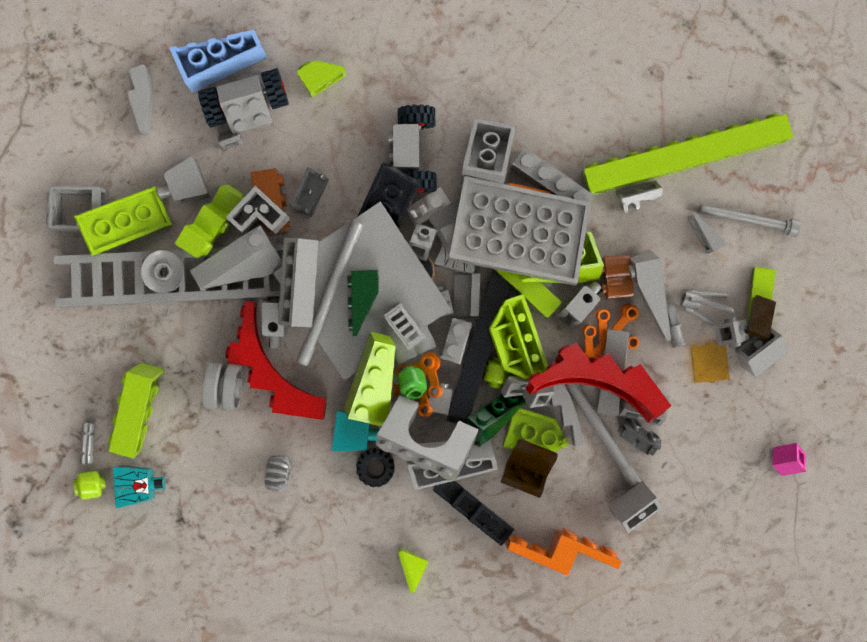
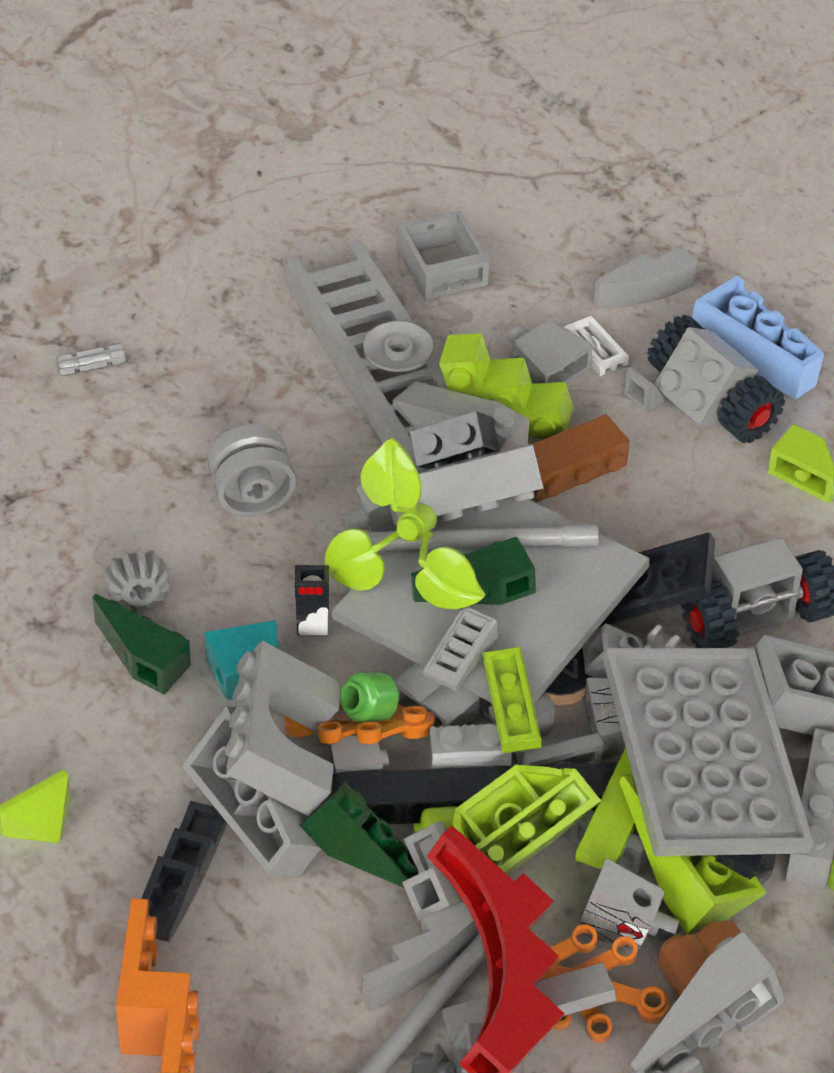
camera: 70 degrees right, 40 degrees down
(89, 485) = (27, 372): lime head -> none
(122, 221) = (449, 294): lime tile -> none
(134, 409) = (170, 387): lime wedge -> none
(135, 485) = (45, 422): teal torso -> none
(163, 153) = (600, 359): none -> white tile
(250, 352) = (291, 526): red arch -> none
(257, 207) = (554, 420): light grey brick -> none
(262, 273) = (454, 440): none -> brick
(309, 192) = (615, 499): dark grey hinge -> none
(322, 326) = (353, 561): none -> lime plant
(324, 483) = (145, 648): none -> dark green slope
(330, 386) = (312, 600): none -> black leg
(366, 477) = (192, 695): black tyre -> none
(372, 384) = (356, 633): lime wedge -> none
(445, 312) = (511, 700): none -> lime tile
(528, 467) = (292, 927): dark brown bracket -> none
(535, 429) = (356, 924): lime tile -> none

